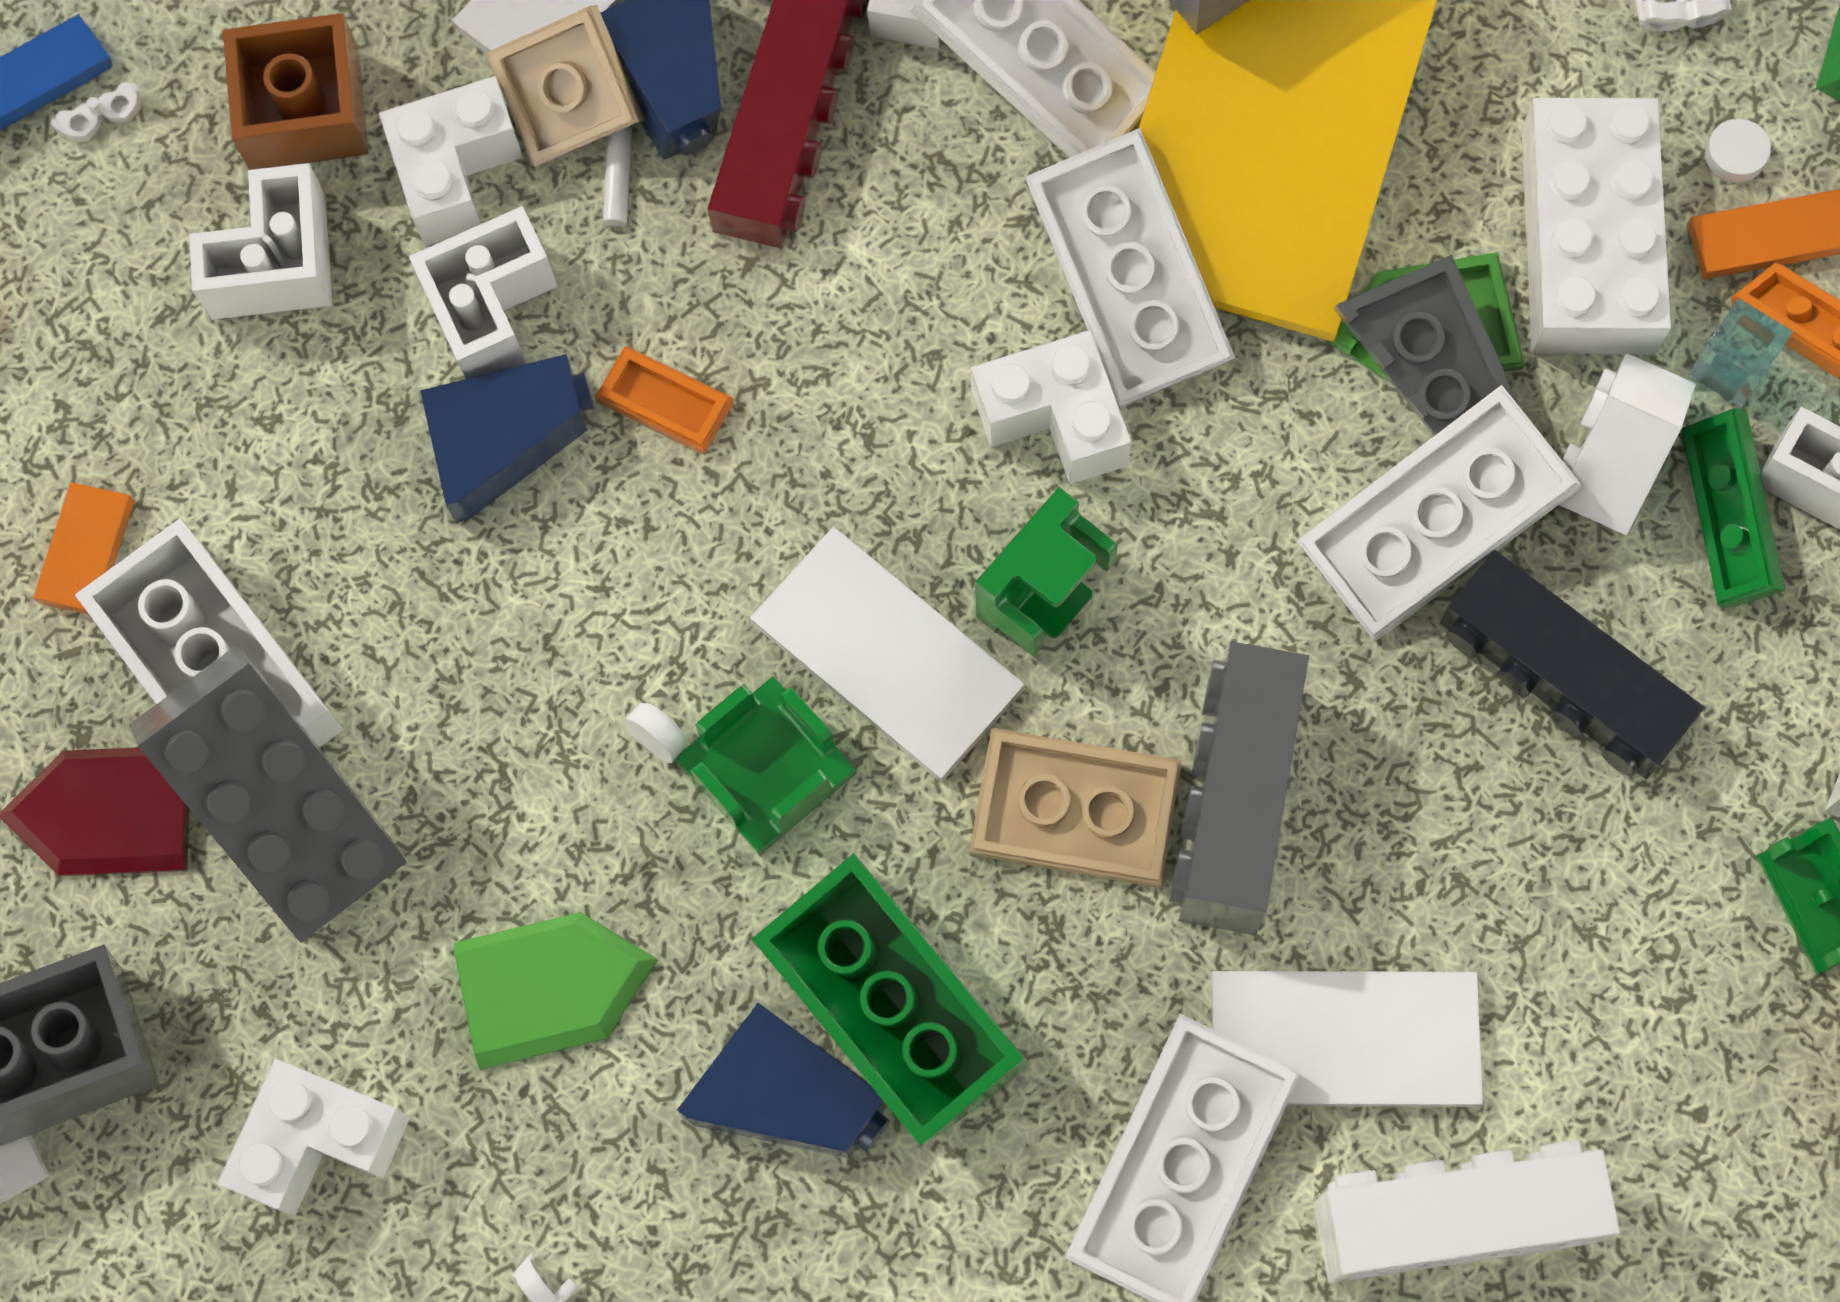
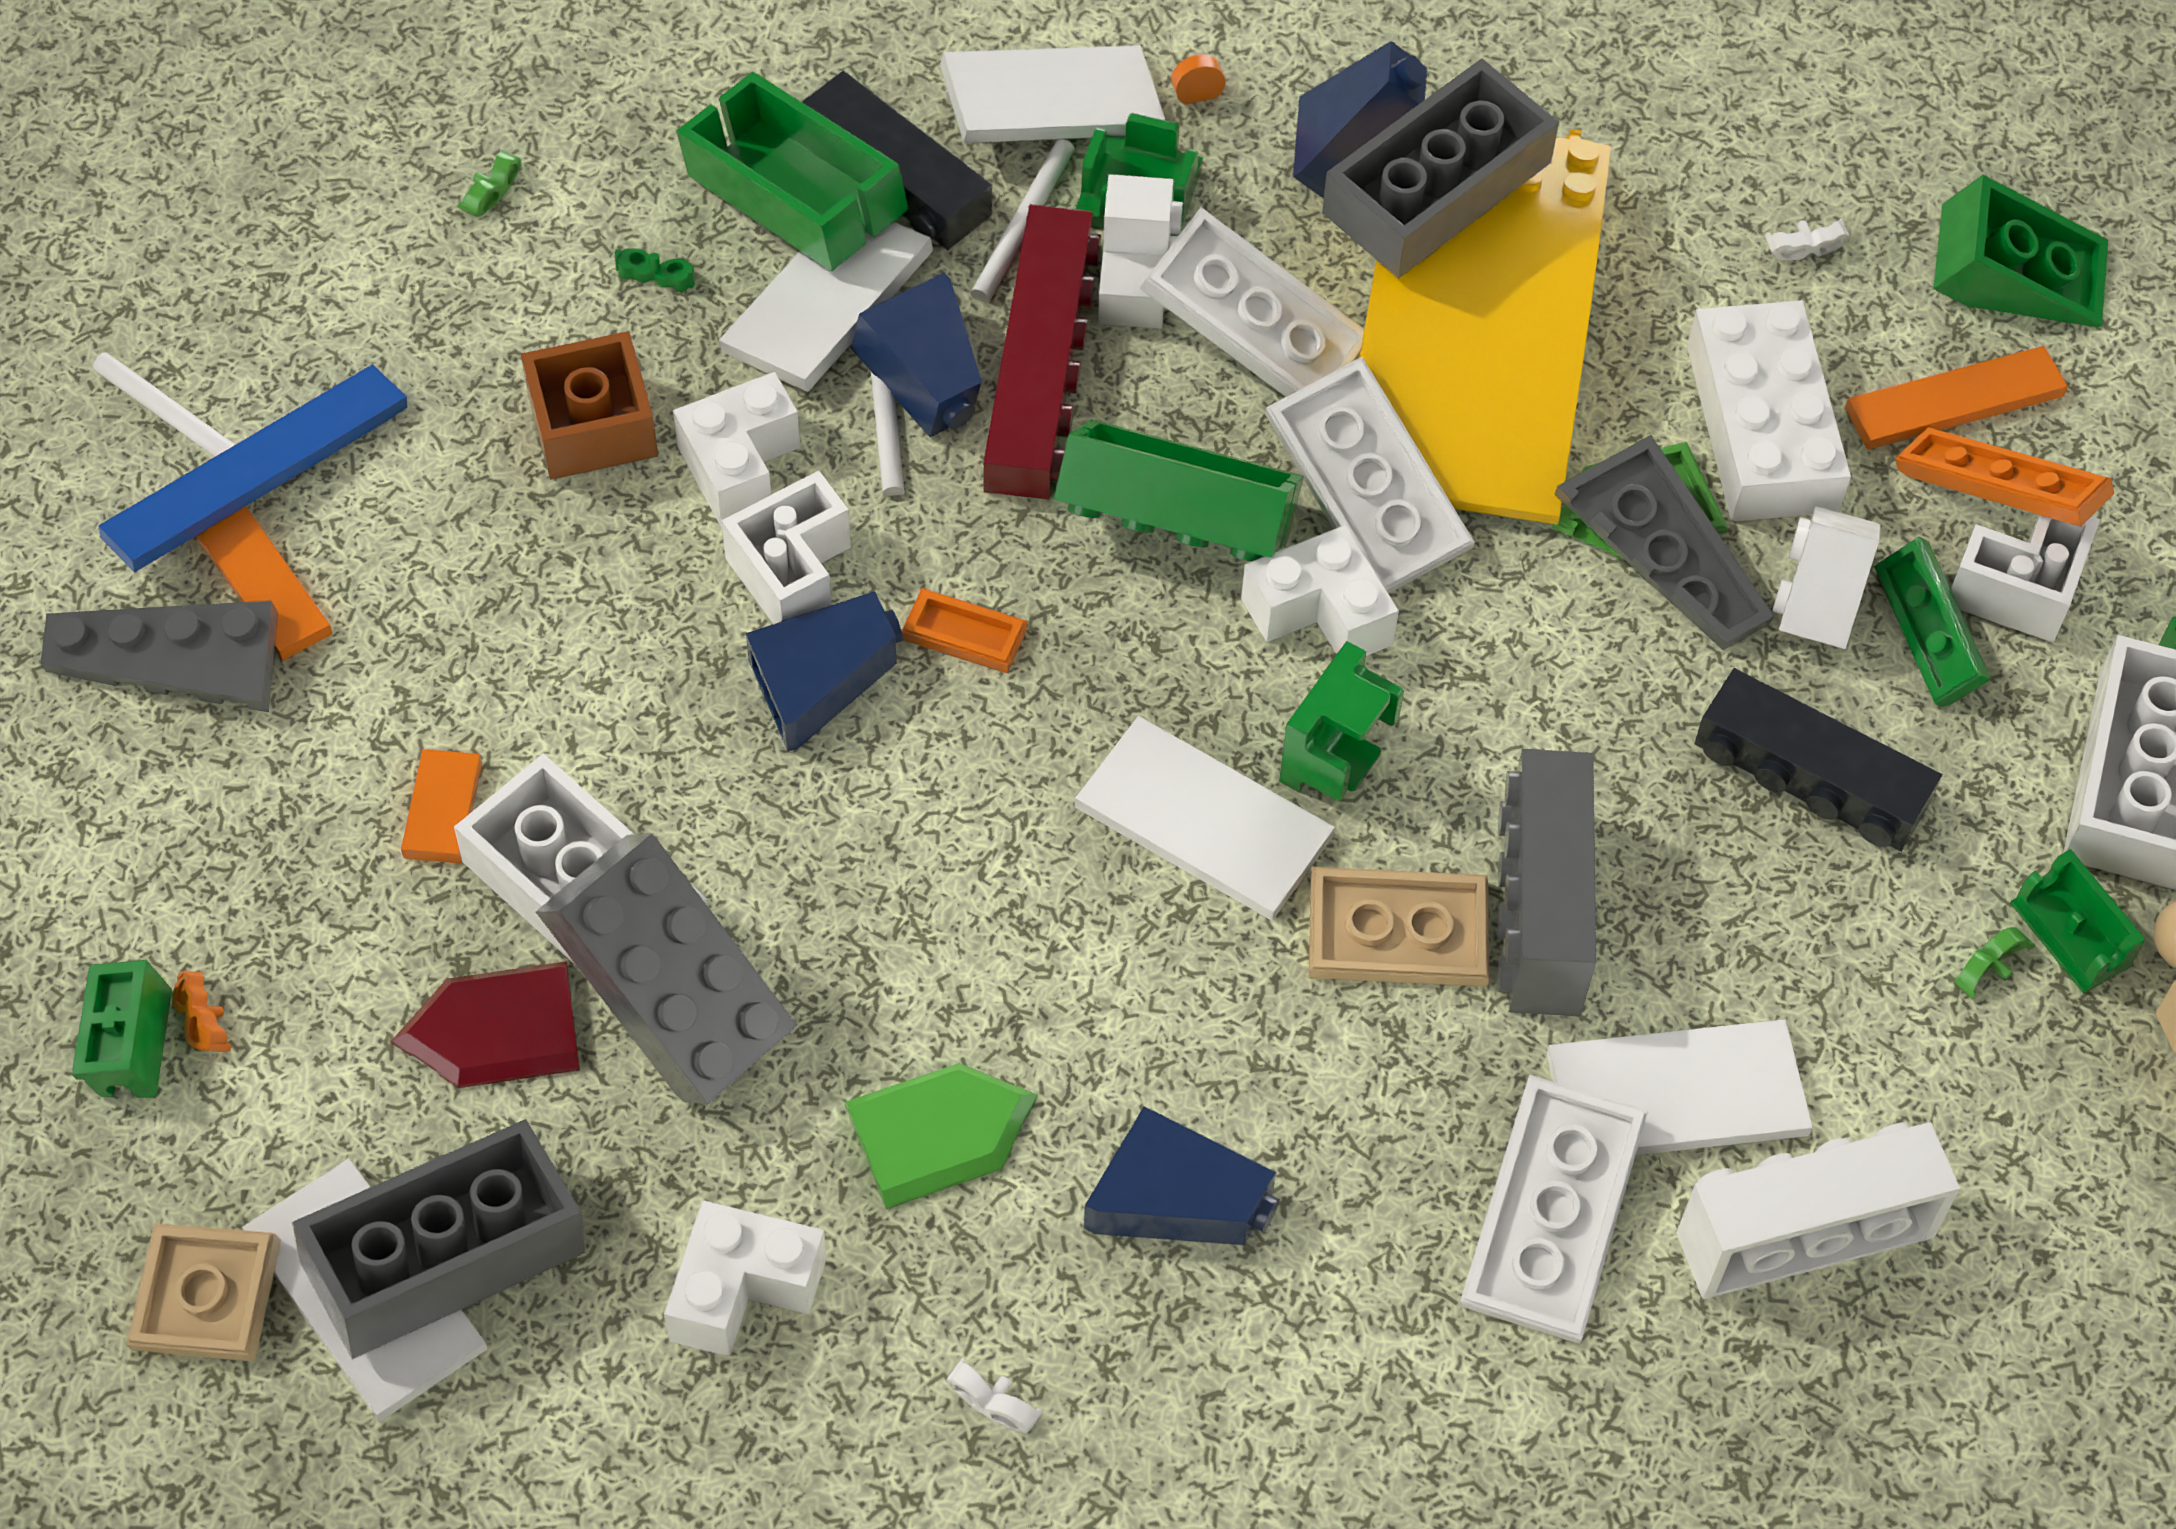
camera: 15 degrees left, 15 degrees down
(86, 119) = (414, 439): white piece -> none
(277, 260) = (590, 544): white brick -> none
(565, 85) = (837, 377): tan tile -> none
(656, 732) = (1005, 900): white tile -> none
(765, 761) = (1110, 913): green panel -> none
(890, 1001) = (1269, 1089): green slope -> none
(914, 265) = (1178, 490): none -> green piece
(1439, 513) = (1678, 648): white tile -> none
(1717, 923) = (1996, 949): none -> bright green piece
(1737, 150) = (1876, 345): white tile -> none
(1740, 352) = (1913, 494): clear light blue brick -> none

